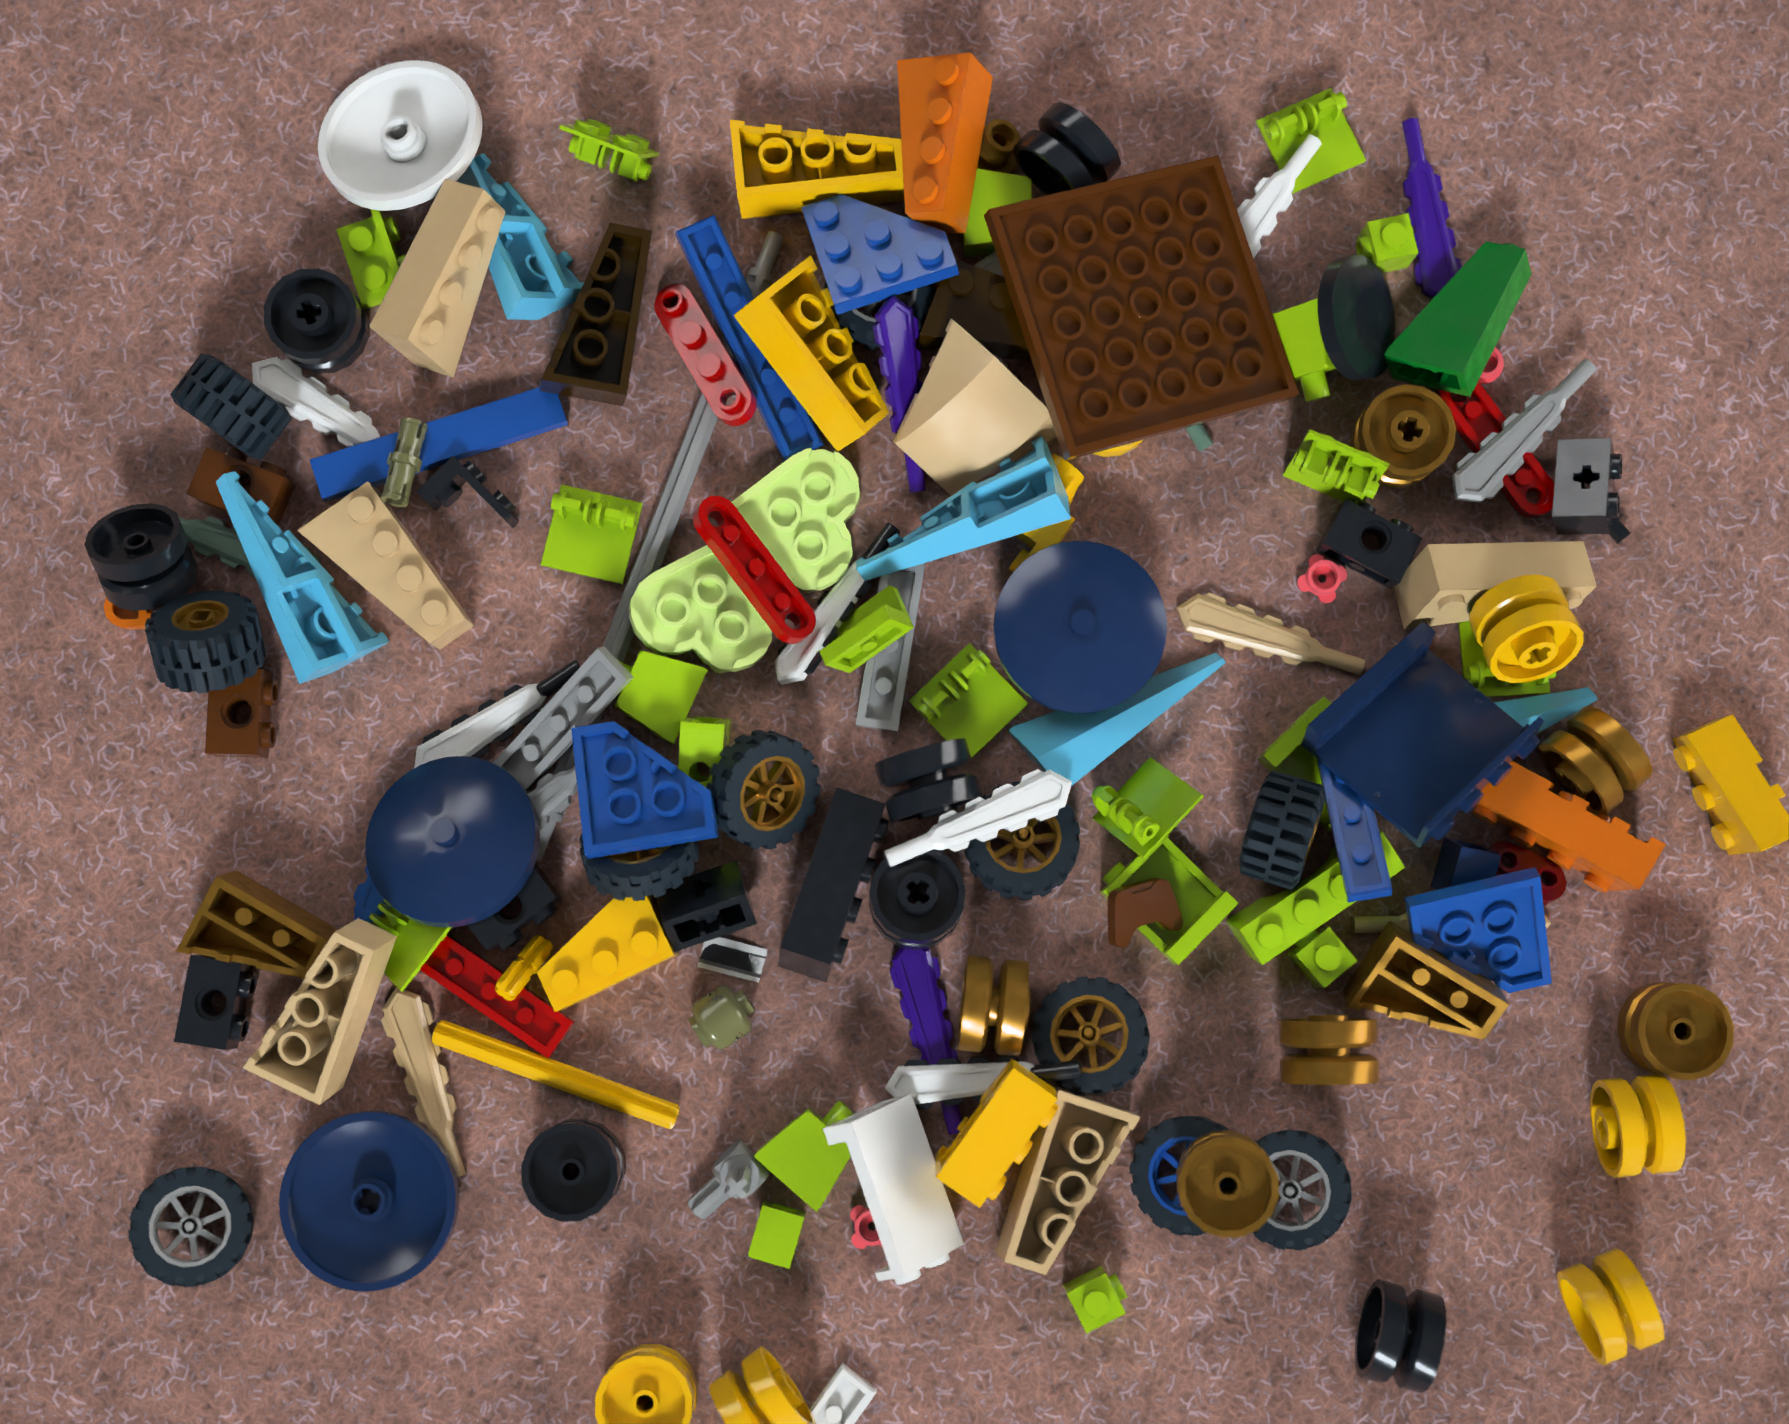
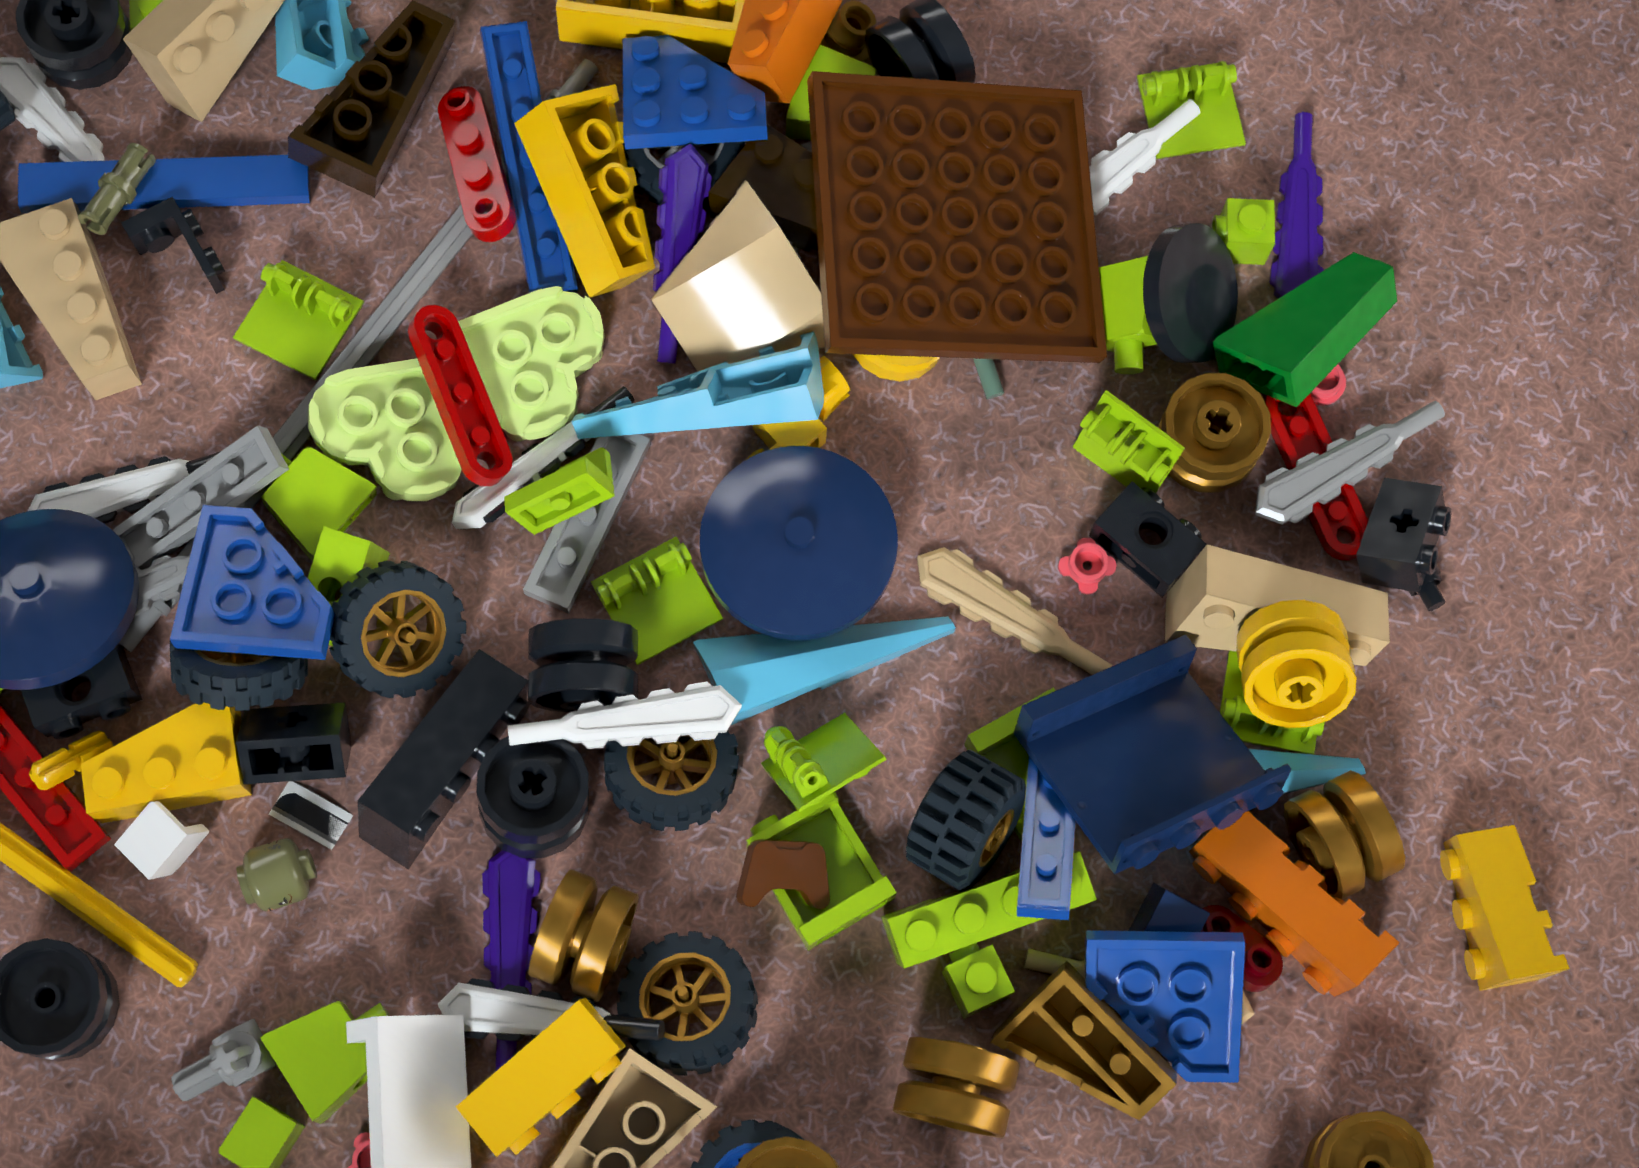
camera: 10 degrees right, 10 degrees down
(618, 1017) = (159, 841): none -> white panel

